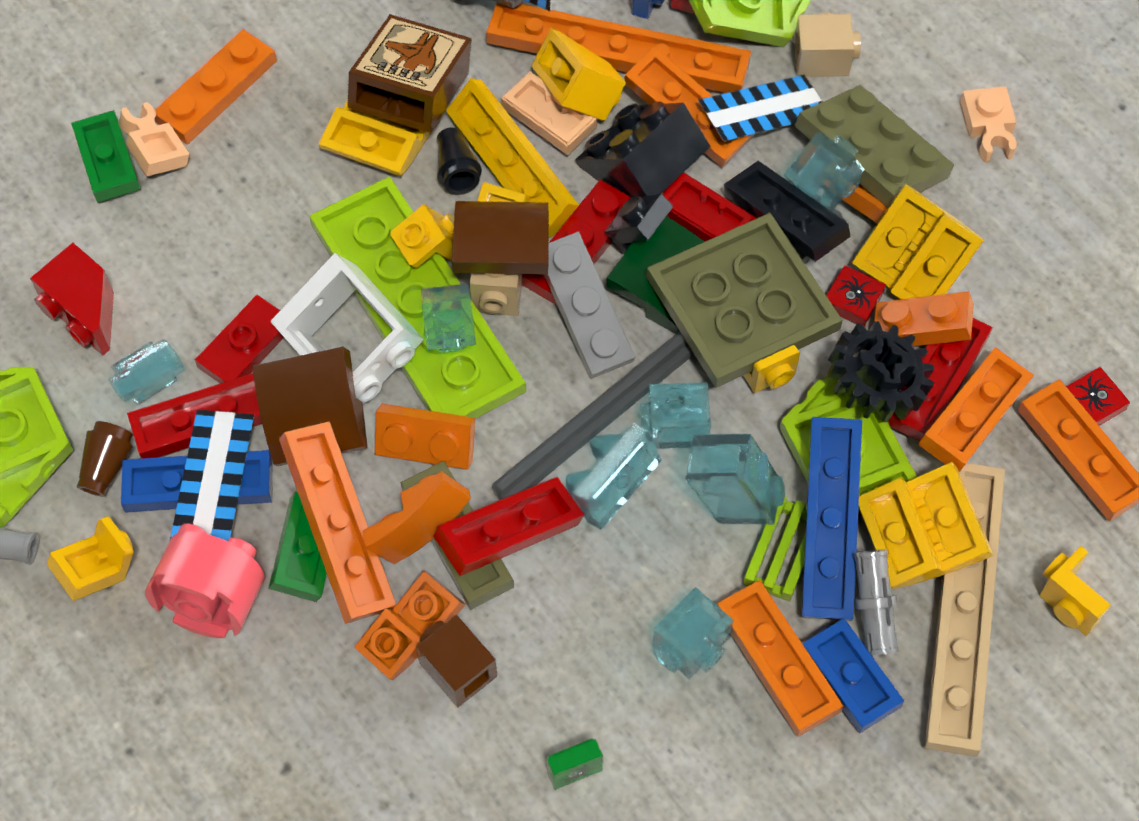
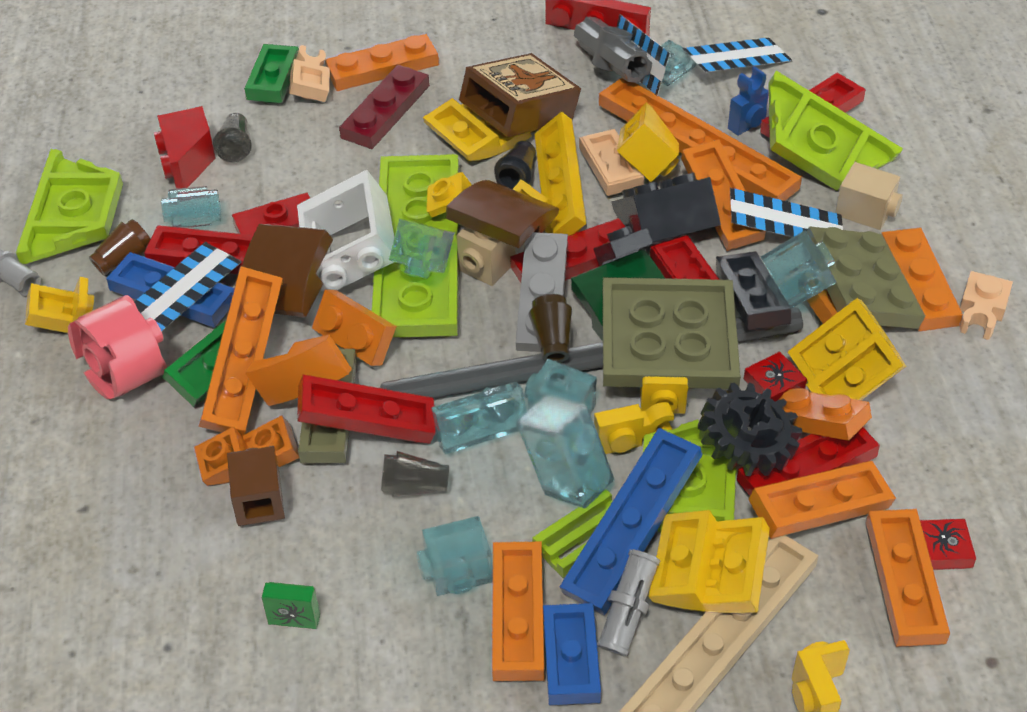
camera: 30 degrees right, 15 degrees down
(125, 262) = (233, 139): none -> clear smoke cone
(259, 144) = (384, 106): none -> dark red plate
(591, 570) = (413, 475): none -> clear smoke cone
(631, 347) = (552, 325): none -> dark brown cone
(761, 415) = (626, 426): none -> yellow plate
(922, 114) = (924, 278): none -> orange plate

